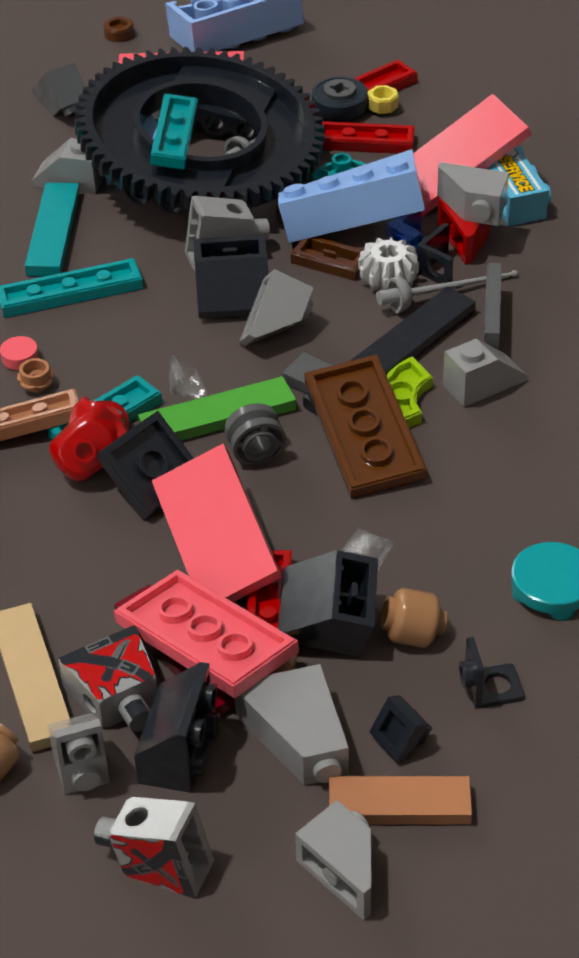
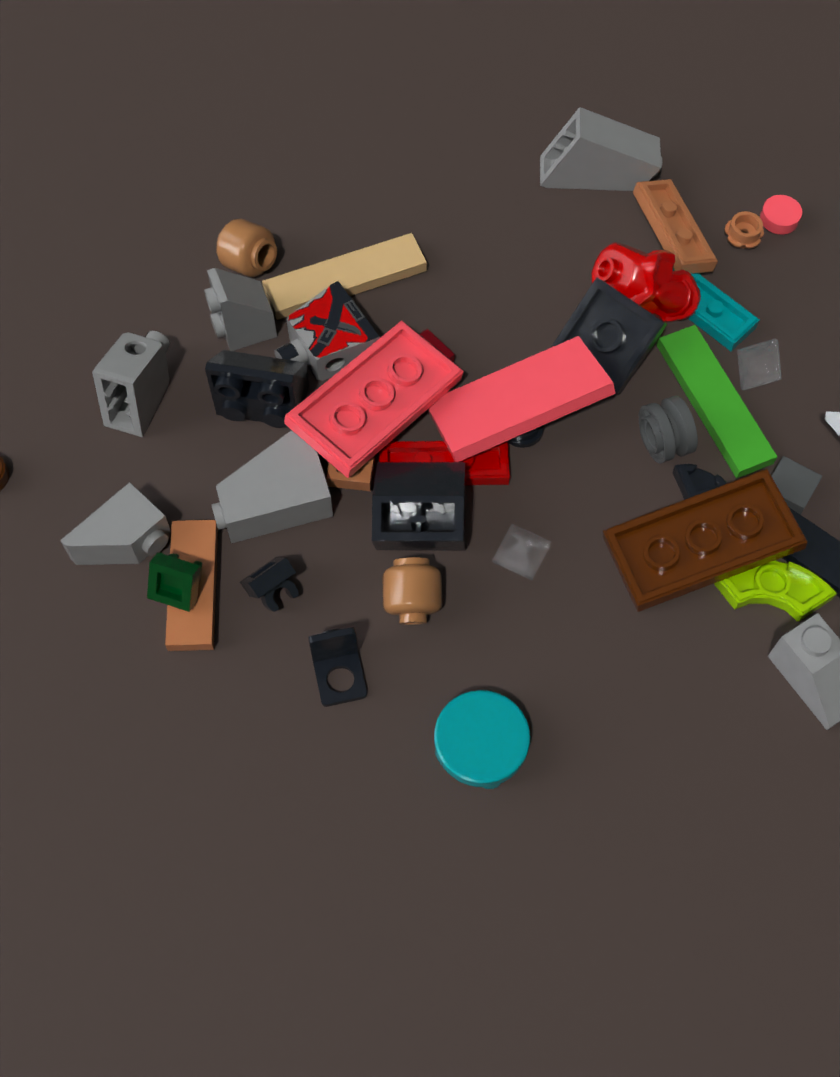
camera: 85 degrees right, 20 degrees up
(304, 430) = (695, 481): none -> black tile
(409, 792) = (174, 581): none -> dark green tile

